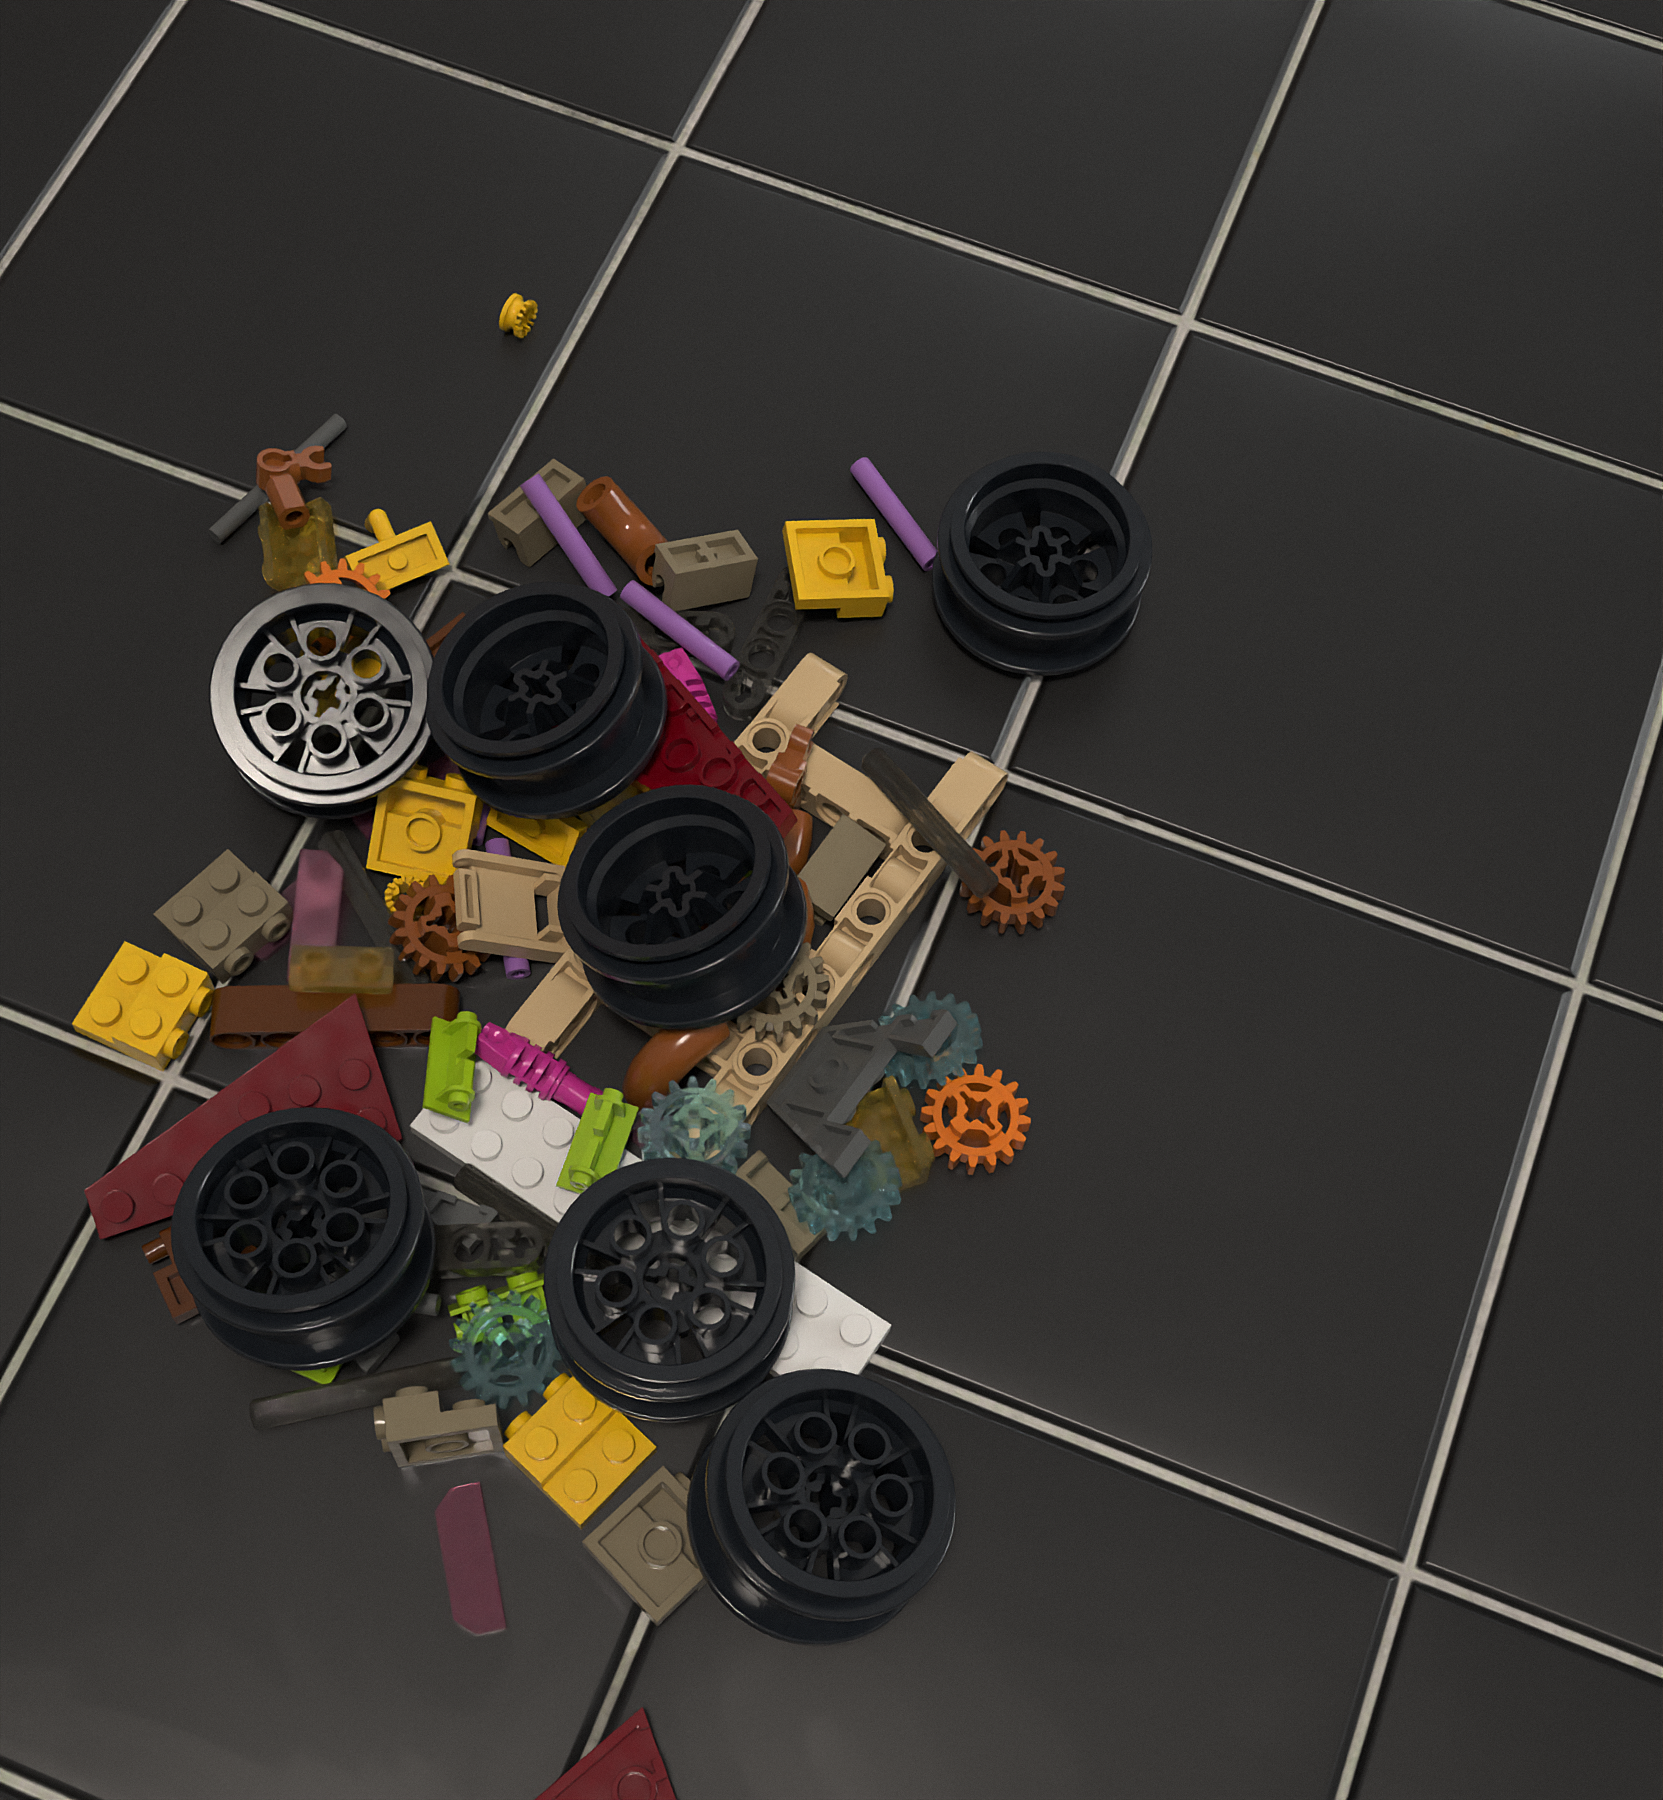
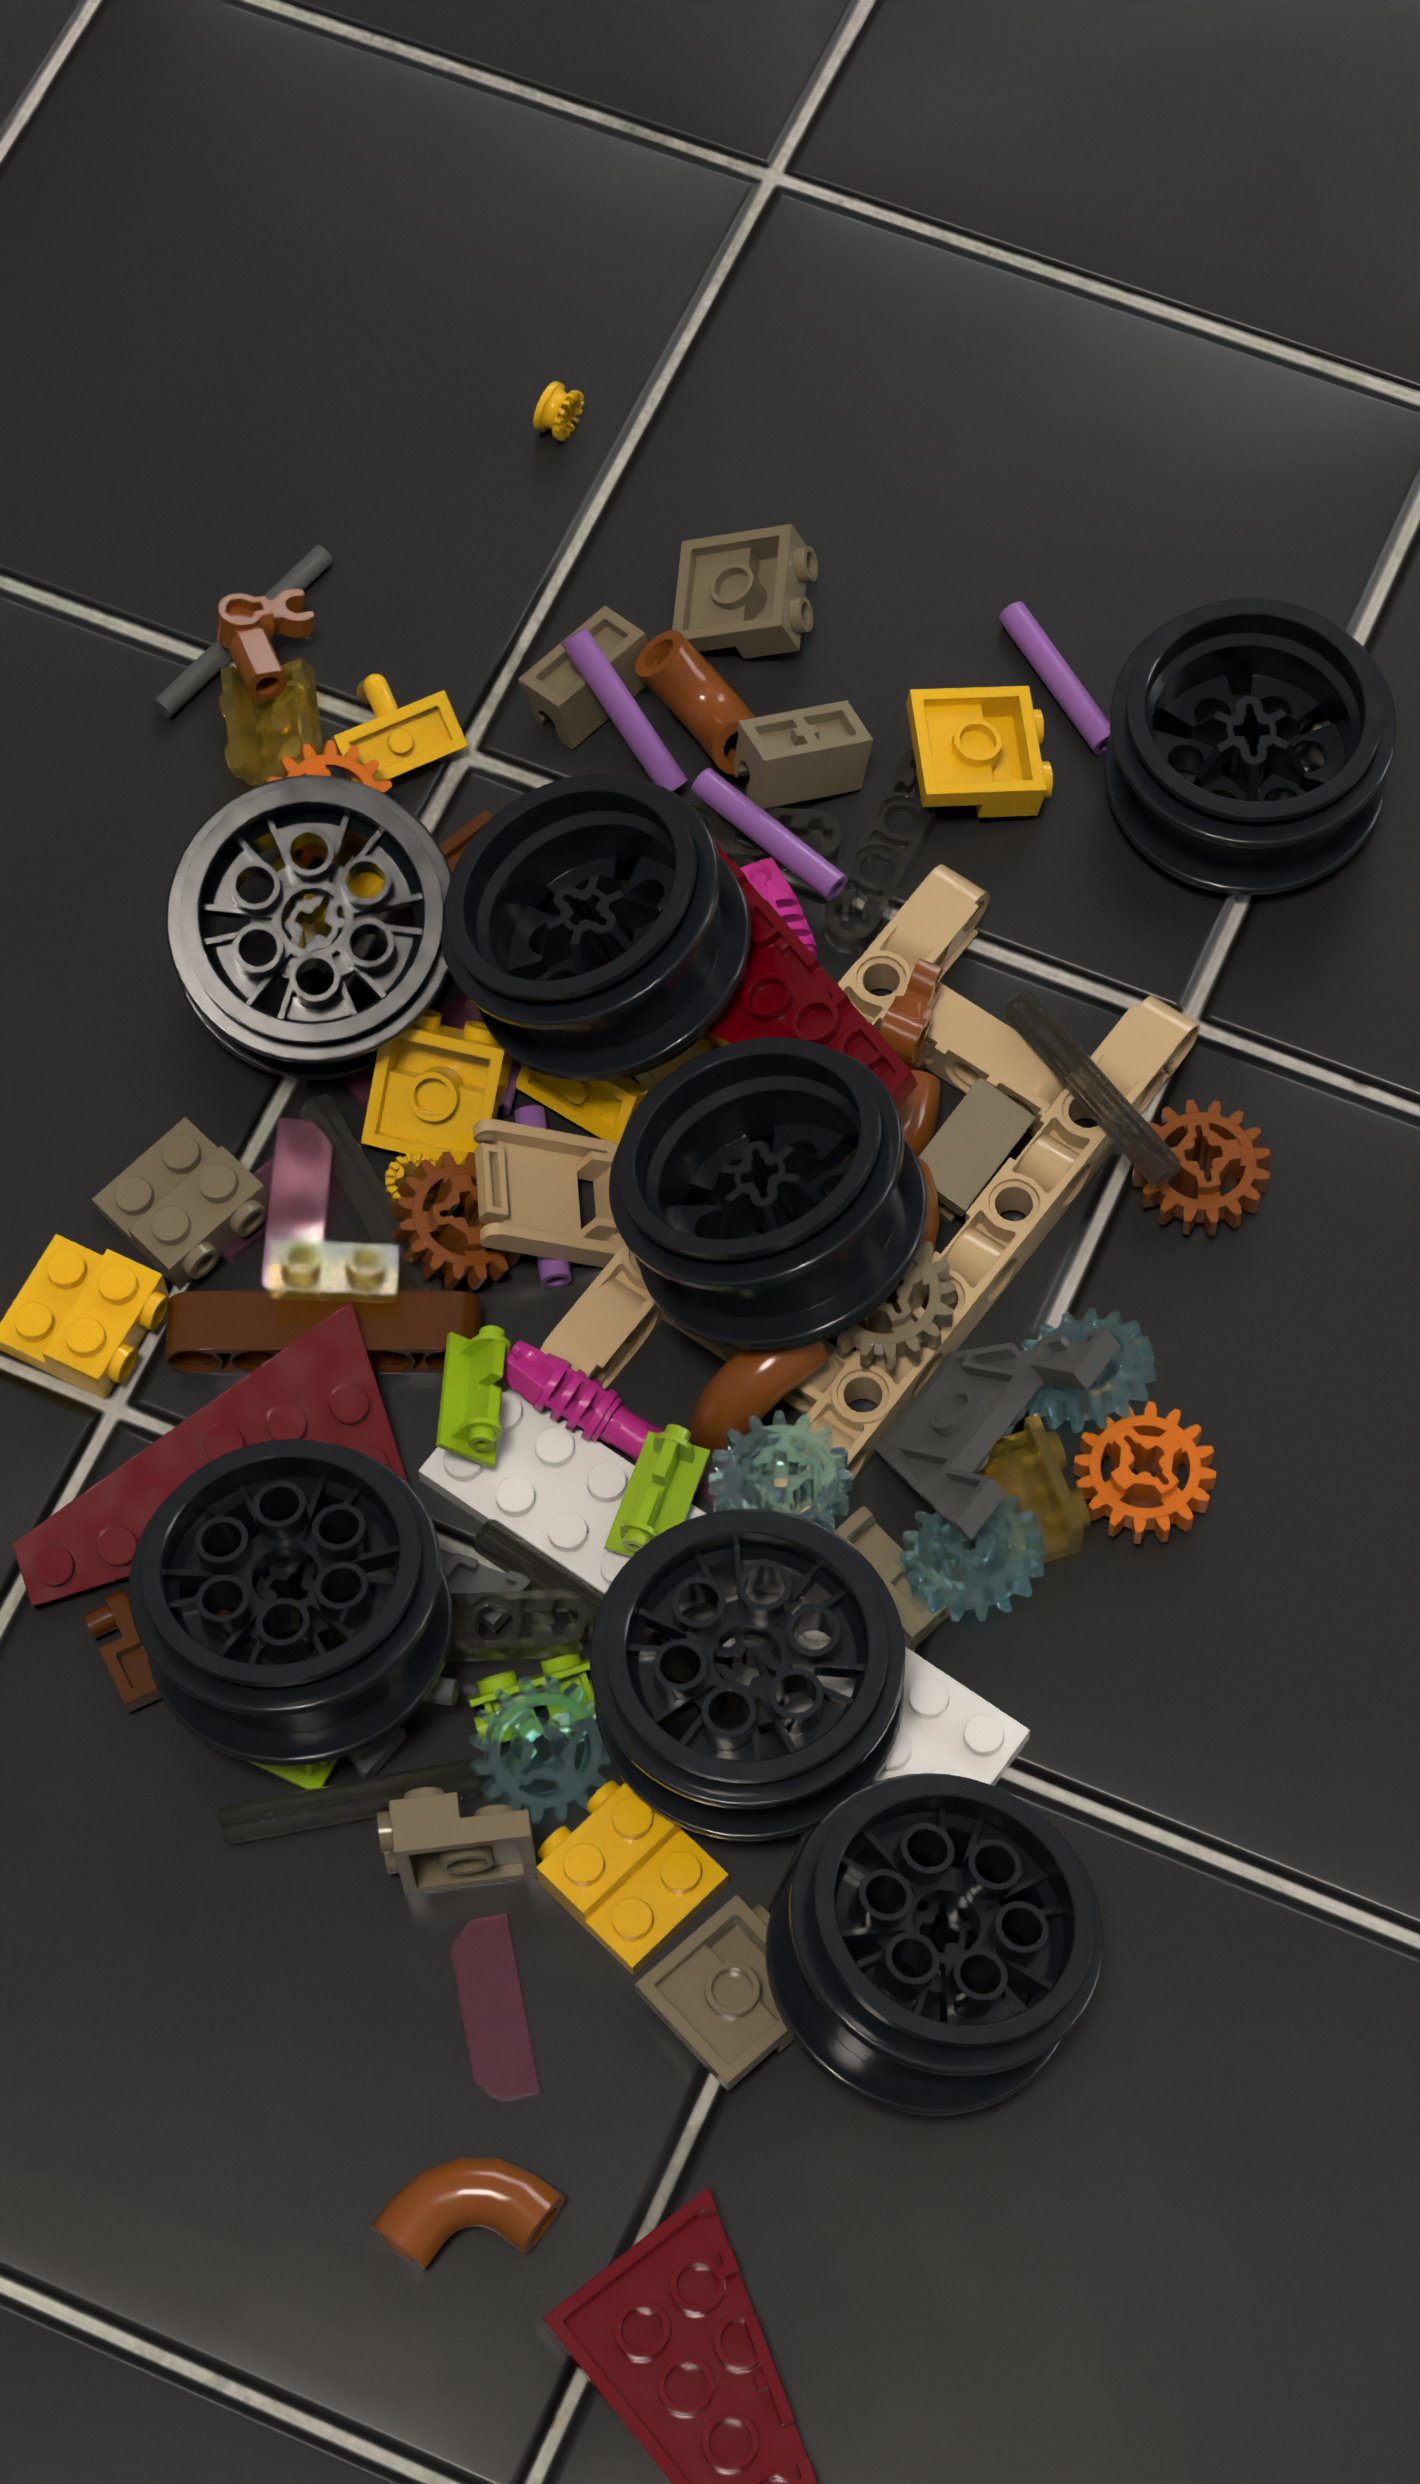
camera: 10 degrees right, 0 degrees up
(448, 1719) = (464, 2196): none -> dark orange cylinder
(660, 448) = (745, 591): none -> dark tan plate

